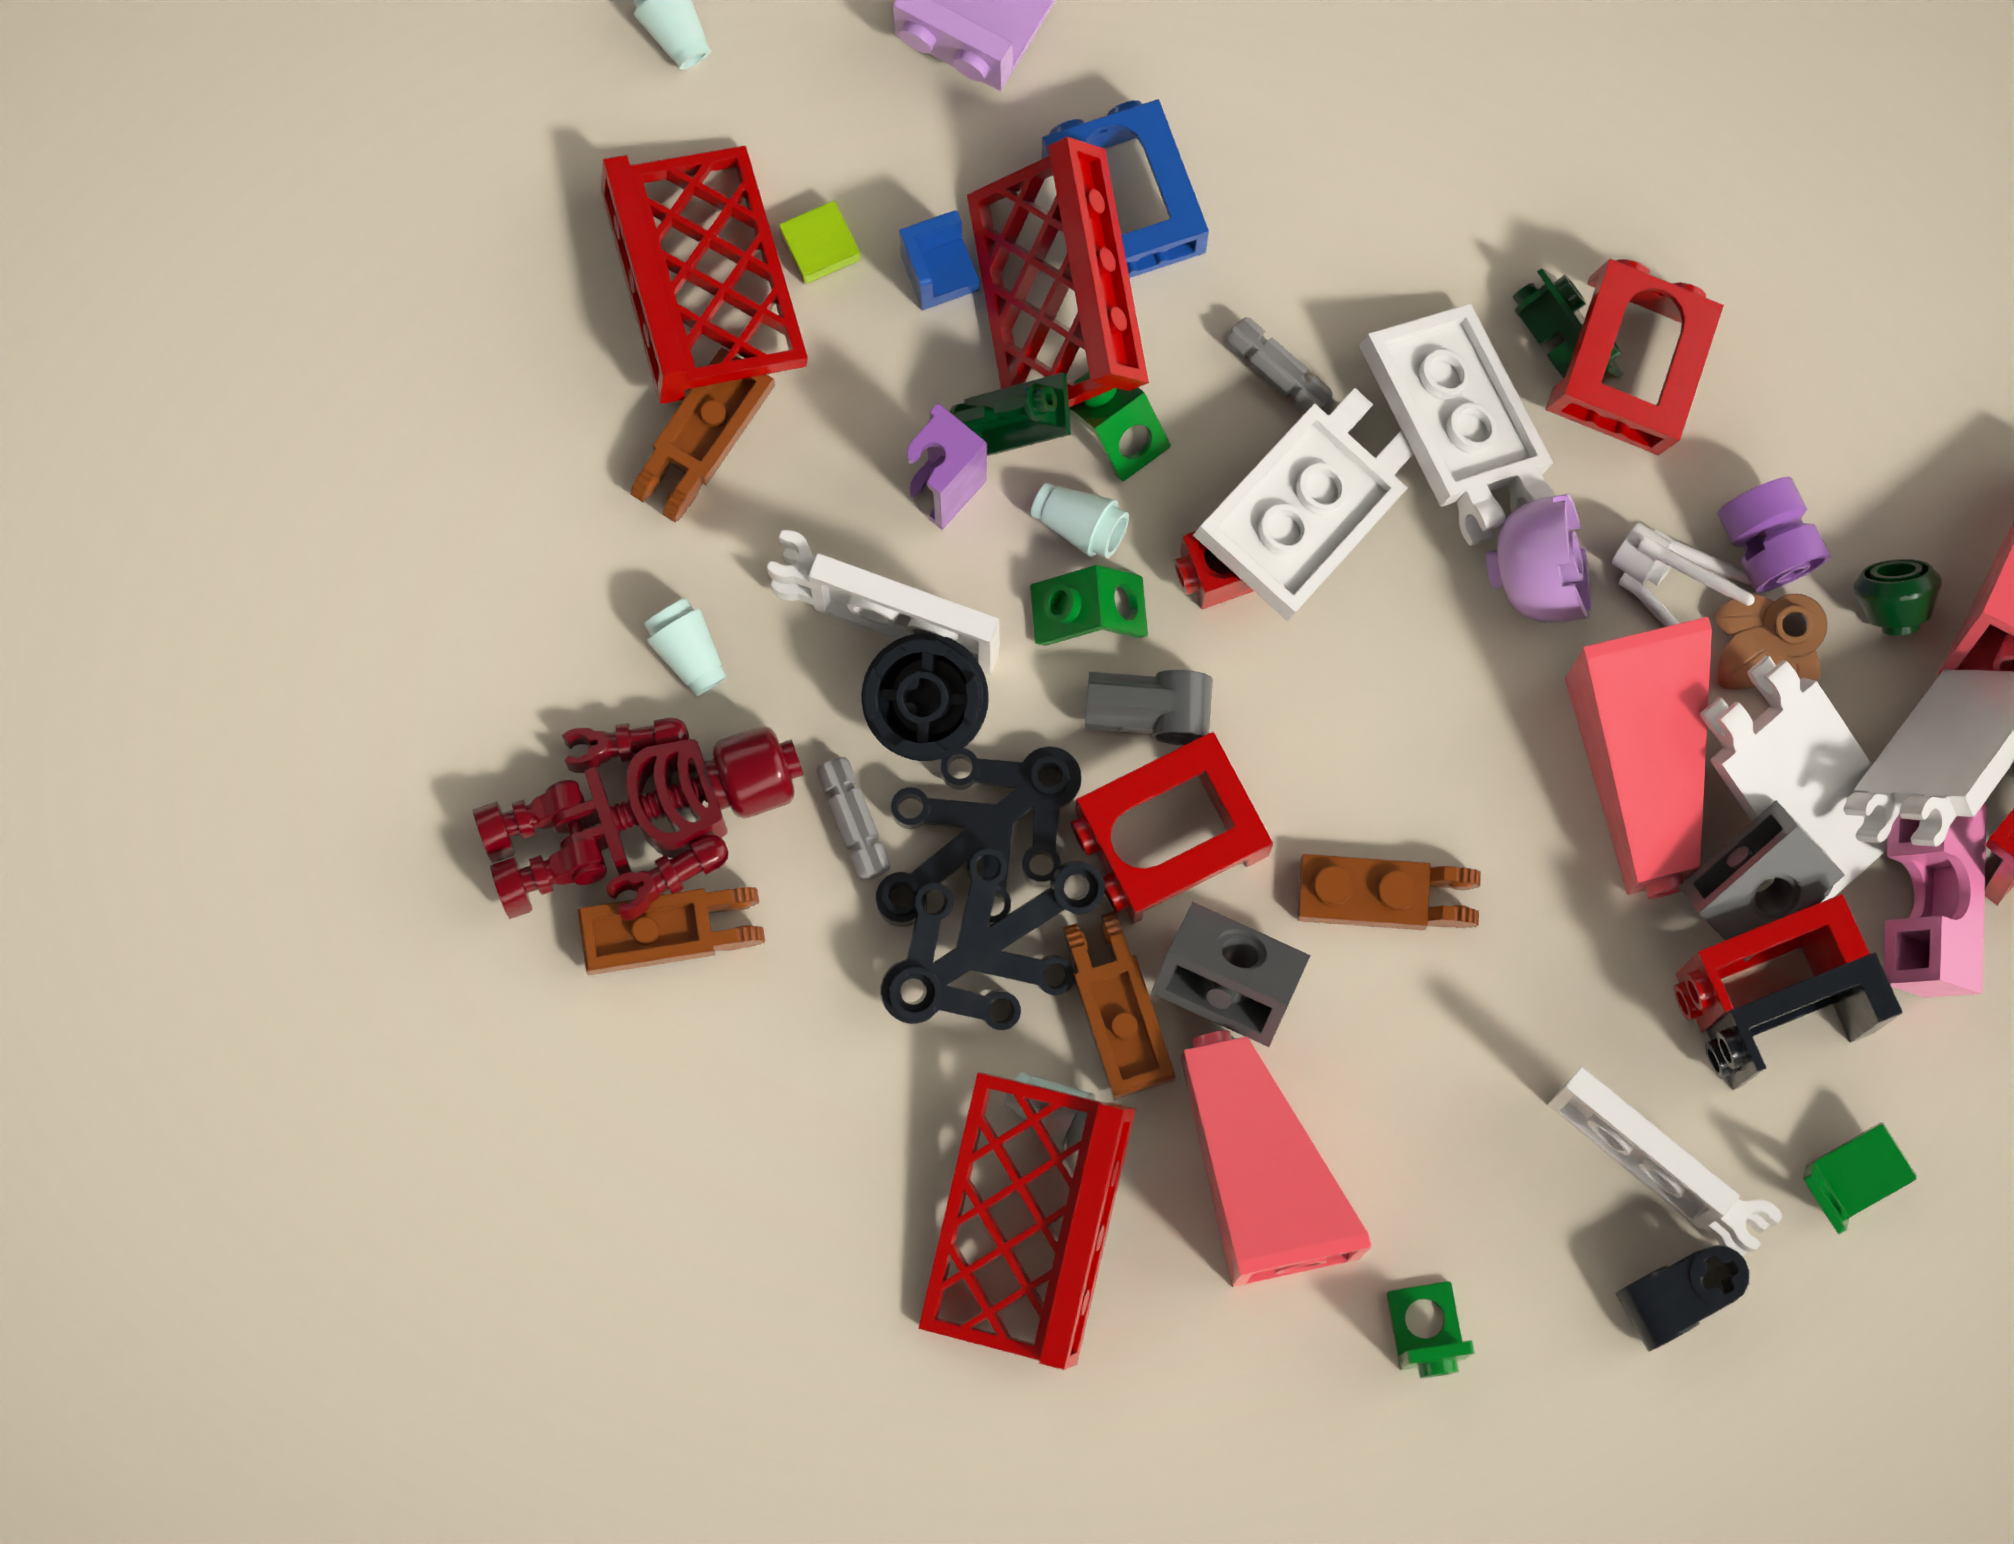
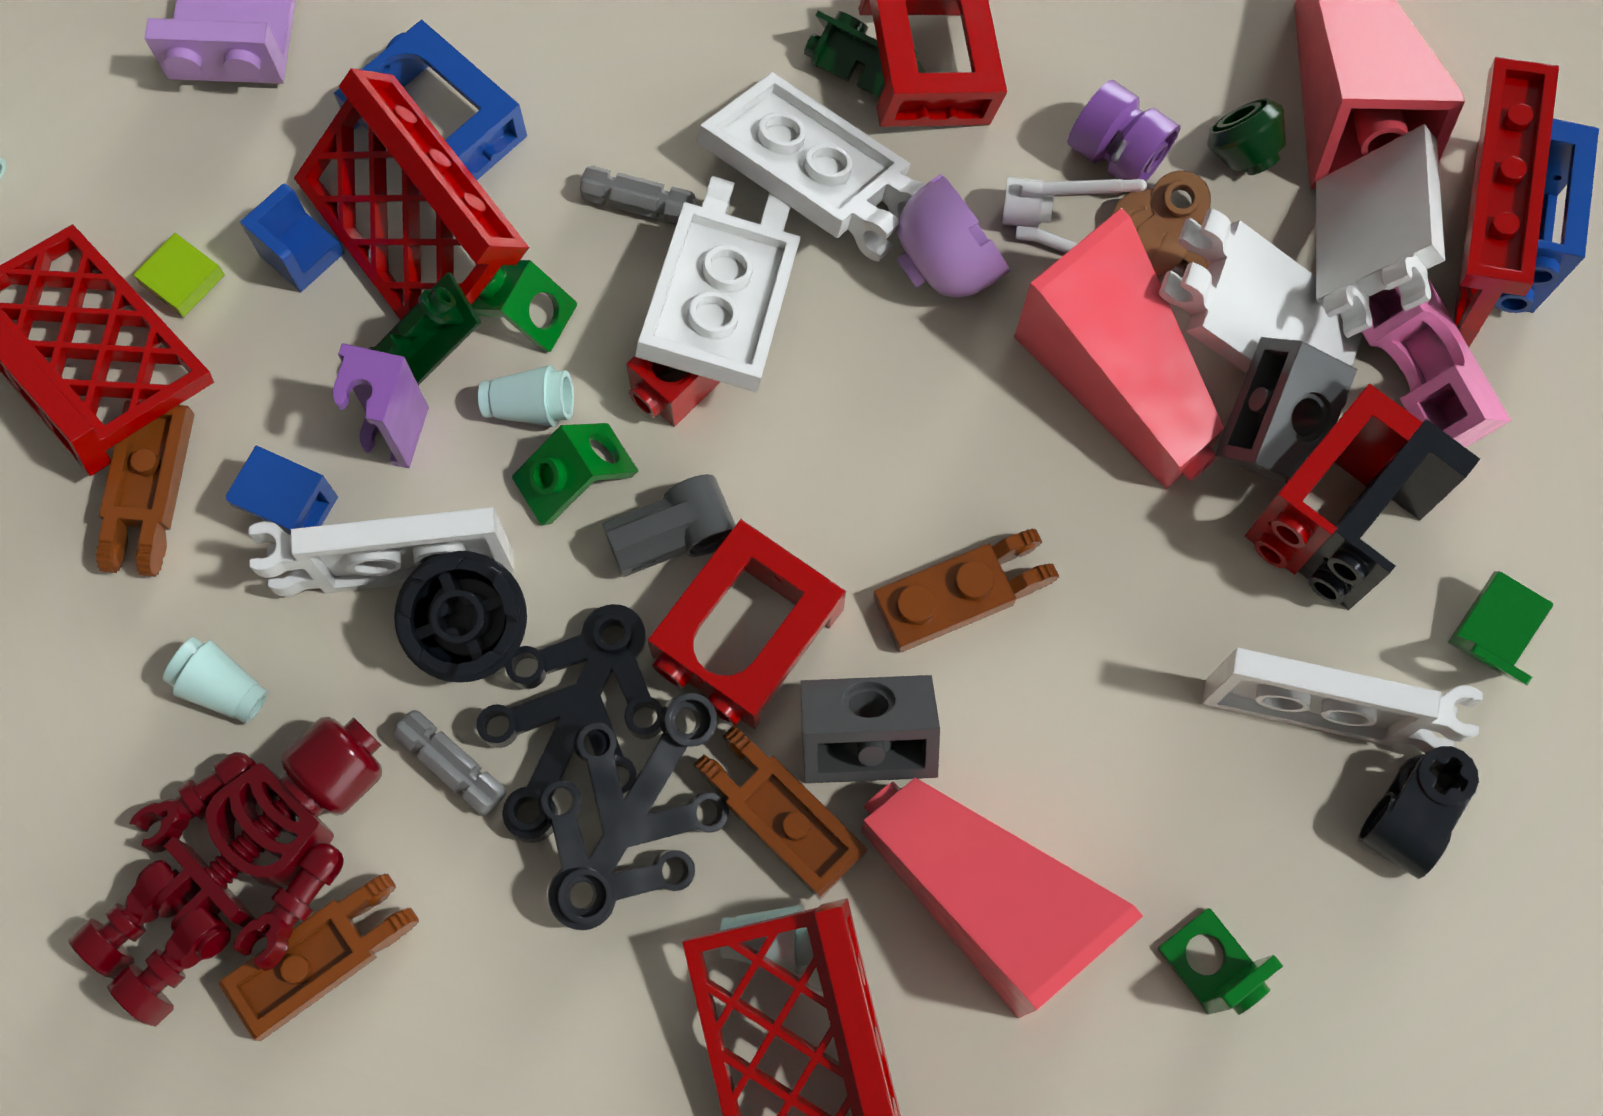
camera: 30 degrees left, 5 degrees down
(820, 504) = (281, 491): none -> blue panel

